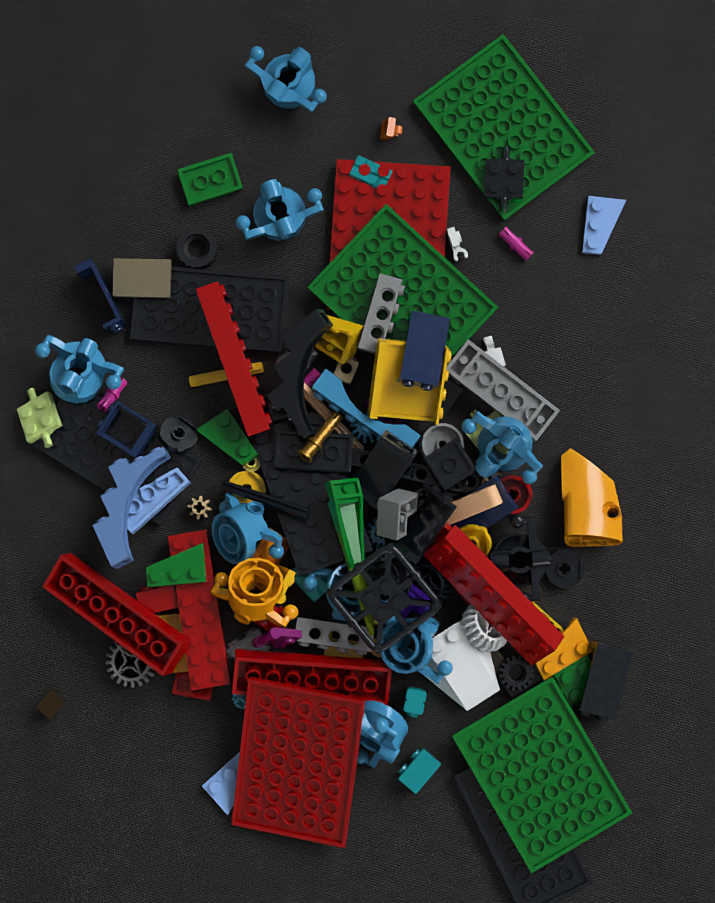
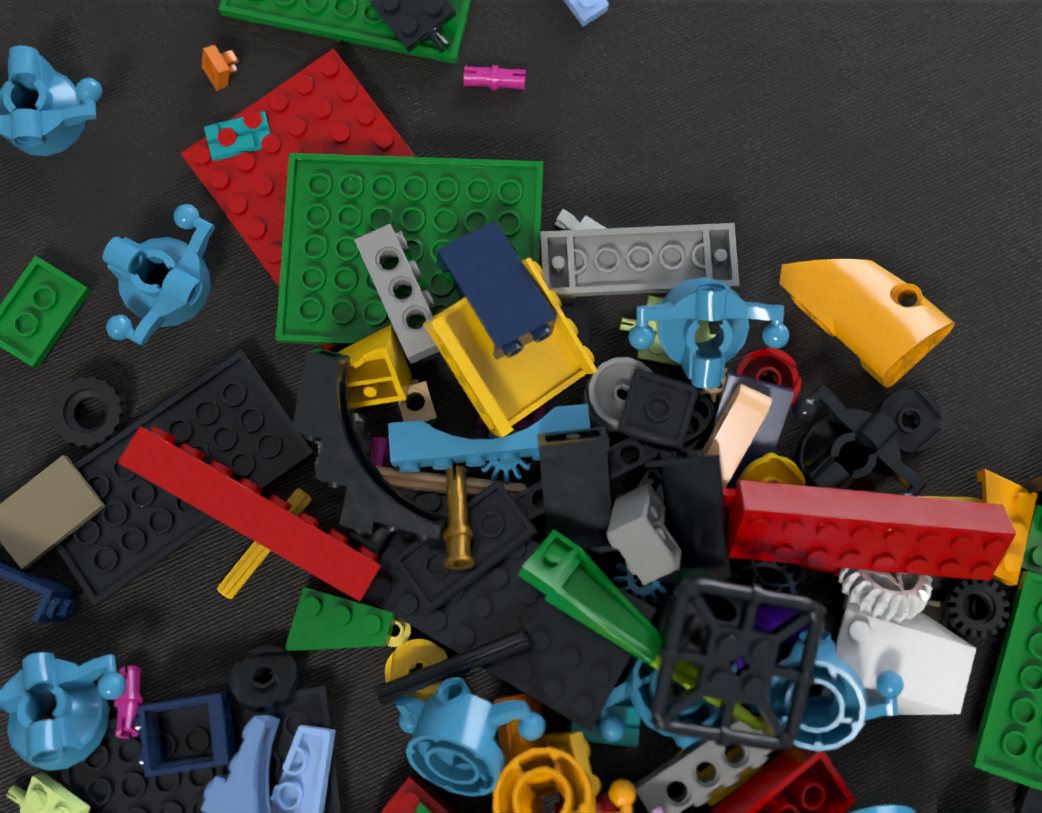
camera: 45 degrees left, 5 degrees down
(196, 503) = (374, 762): tan gear -> none
(414, 700) = (884, 763): teal brick -> none
(454, 240) = (415, 134): white plate -> none

